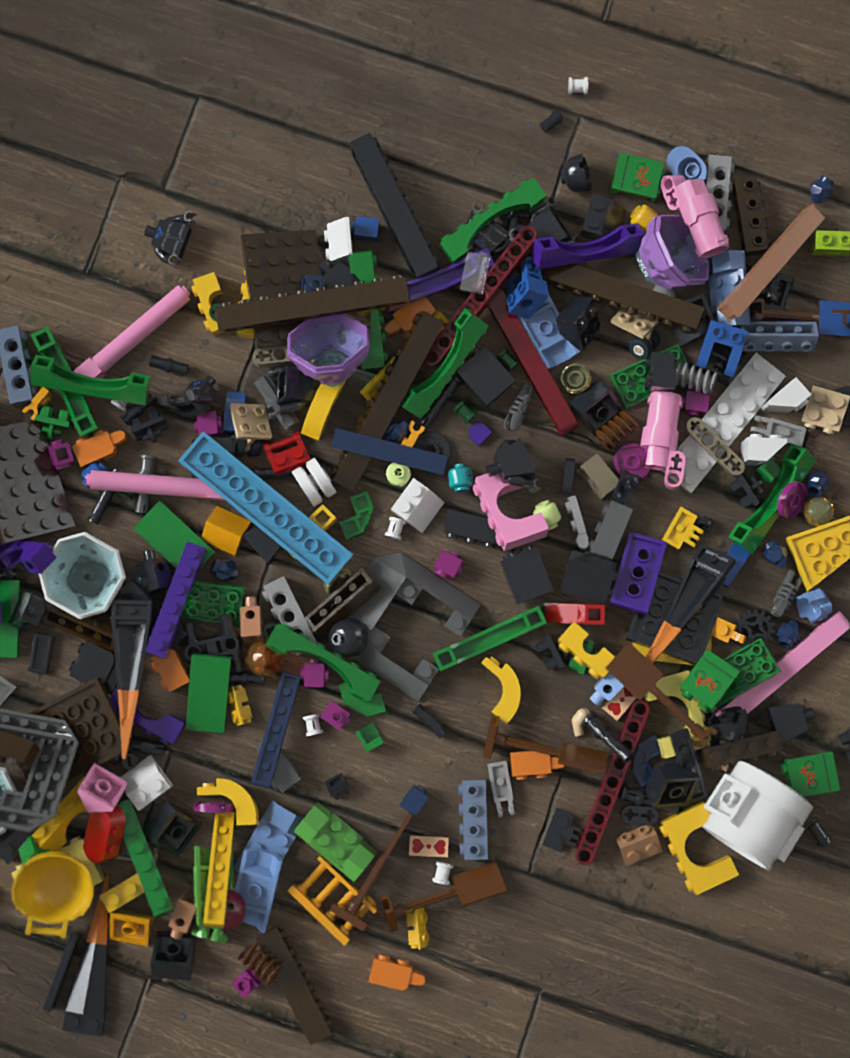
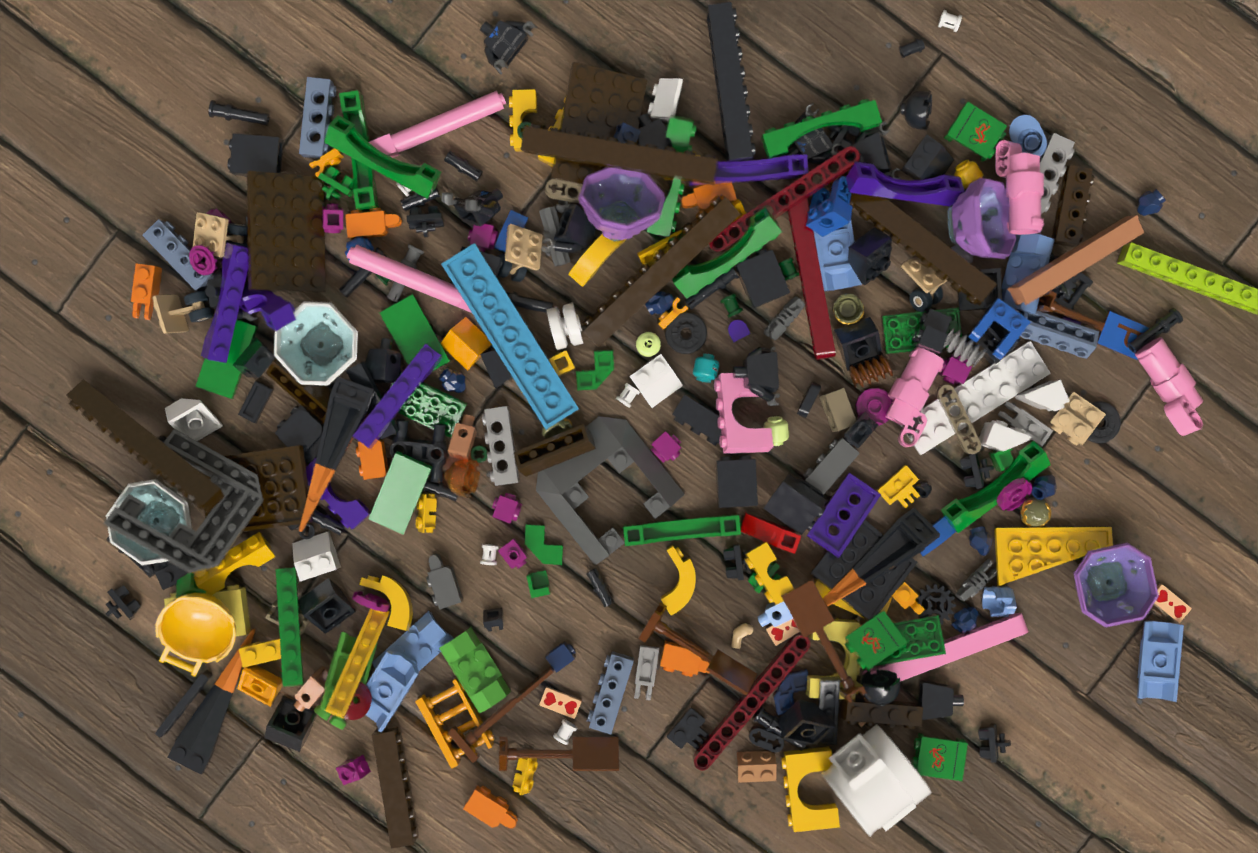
camera: 15 degrees right, 5 degrees up
(101, 790) = (270, 552): bright pink slope -> none
(104, 835) = (261, 592): red brick -> none
(259, 963) = (368, 760): reddish brown piece -> none
(276, 730) = (453, 548): dark blue tile -> none
(287, 459) = (548, 295): red plate -> none
(348, 637) = (548, 485): black cylinder -> none
(361, 684) = (546, 532): green arch -> none
(366, 229) = (696, 95): blue brick -> none
(389, 451) = (646, 321): dark blue tile -> none
(475, 272) = (786, 175): clear panel -> none
(577, 523) = (802, 448): light grey hinge -> none
(602, 730) = (757, 652): black pin -> none
(819, 834) = (928, 814): black pin -> none

